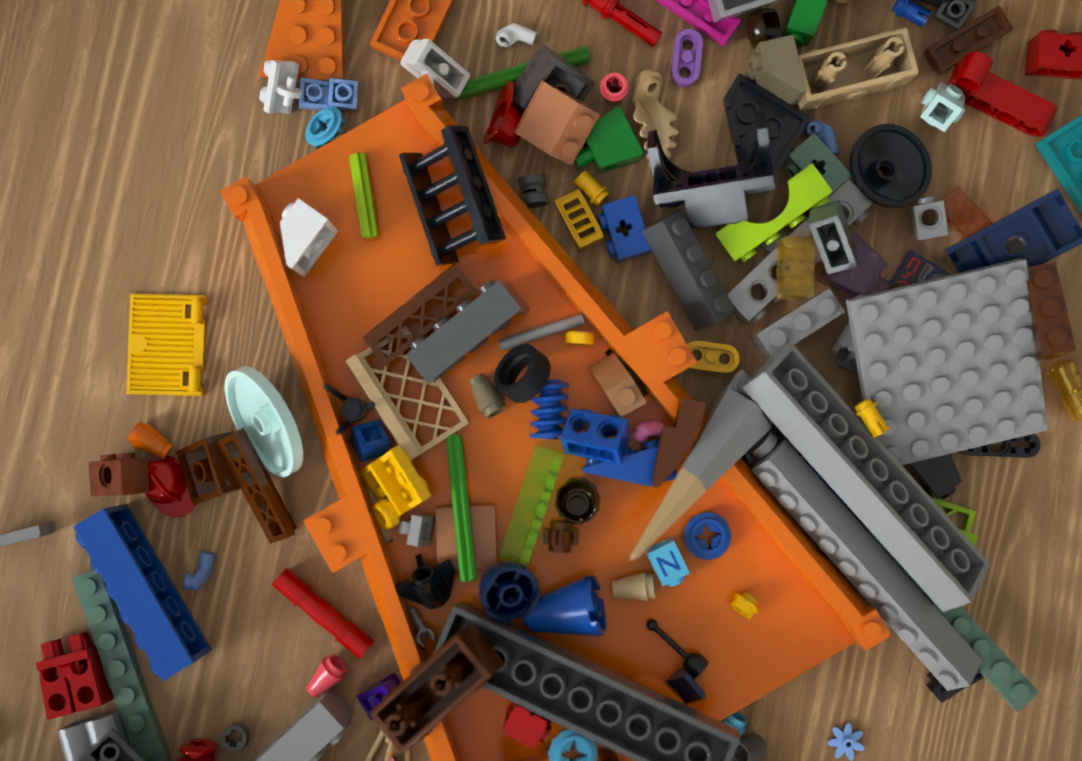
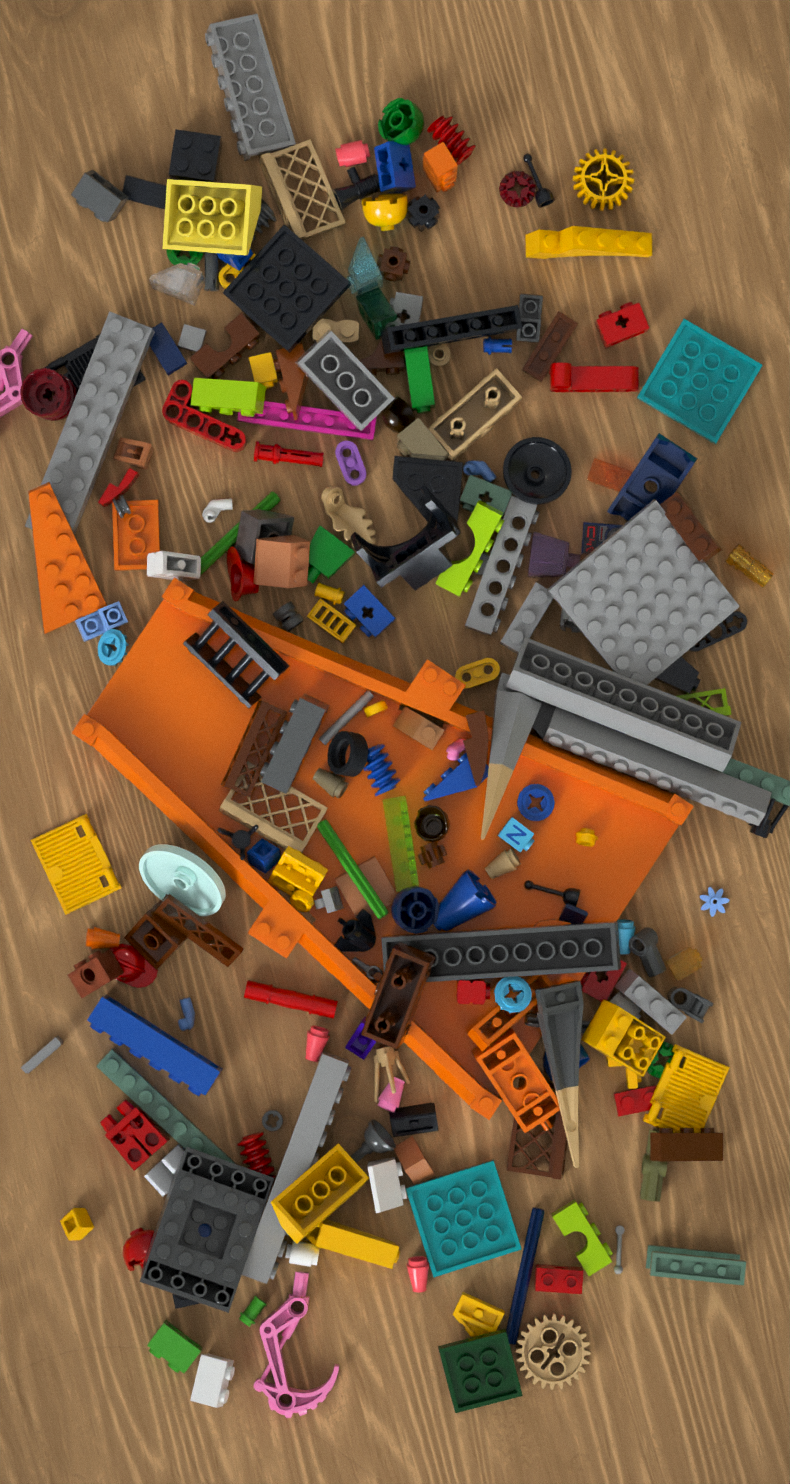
camera: 30 degrees left, 0 degrees up
(281, 86) = (68, 636): white hips -> none
(304, 236) = (147, 733): white slope -> none
(363, 195) = (170, 684): lime axle -> none
(595, 442) = (422, 774): blue brick -> none
(616, 83) = (309, 508): coral cone -> none
(688, 271) = (429, 620): dark grey brick -> none
(764, 445) = (543, 718): light grey tile -> none
(795, 268) = (503, 582): clear yellow brick -> none
(833, 237) = (518, 547): dark grey brick -> none
(871, 417) = (606, 662): yellow pin -> none
(937, 227) = (587, 503): light grey brick -> none
(943, 106) = (553, 407): light aqua brick -> none

